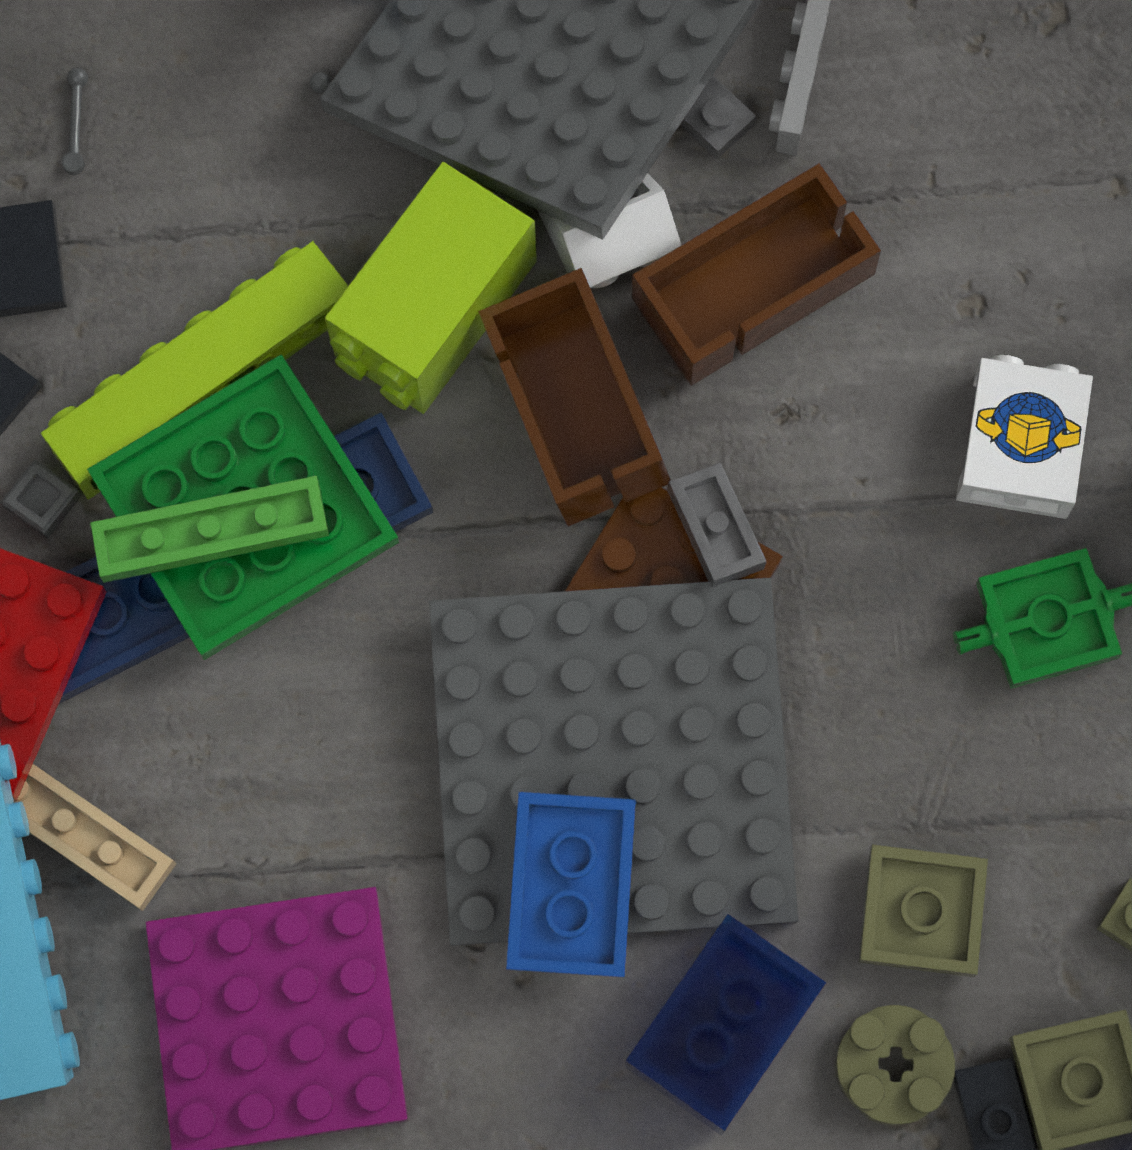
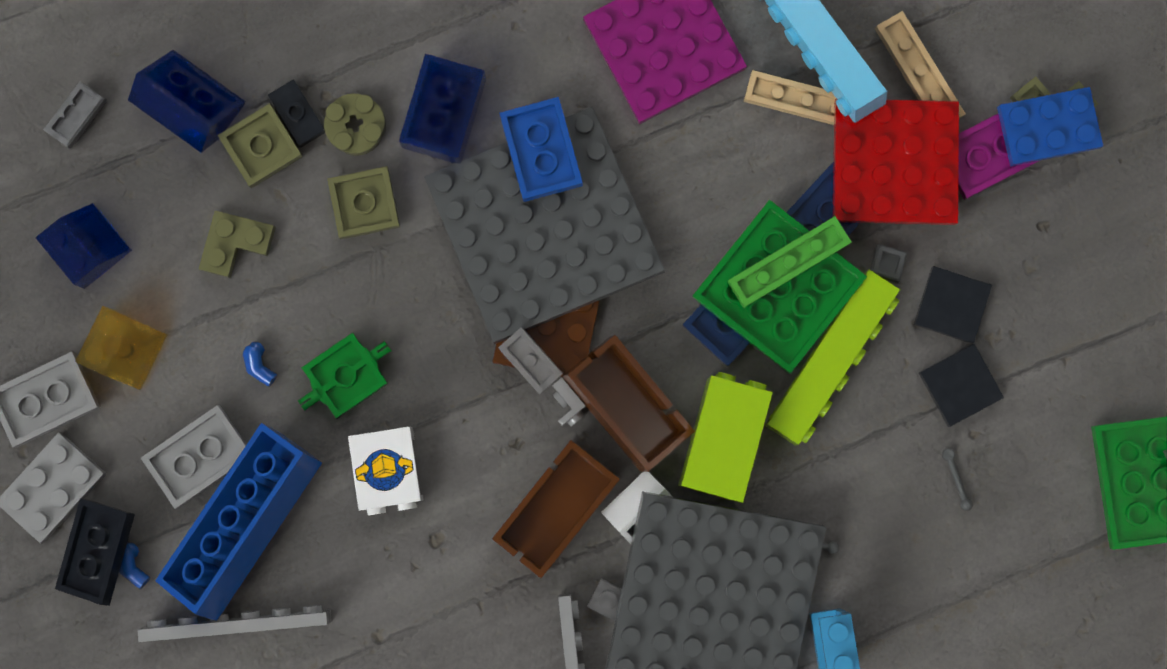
camera: 160 degrees right, 10 degrees up
(667, 426) = (565, 397): none -> light grey bracket

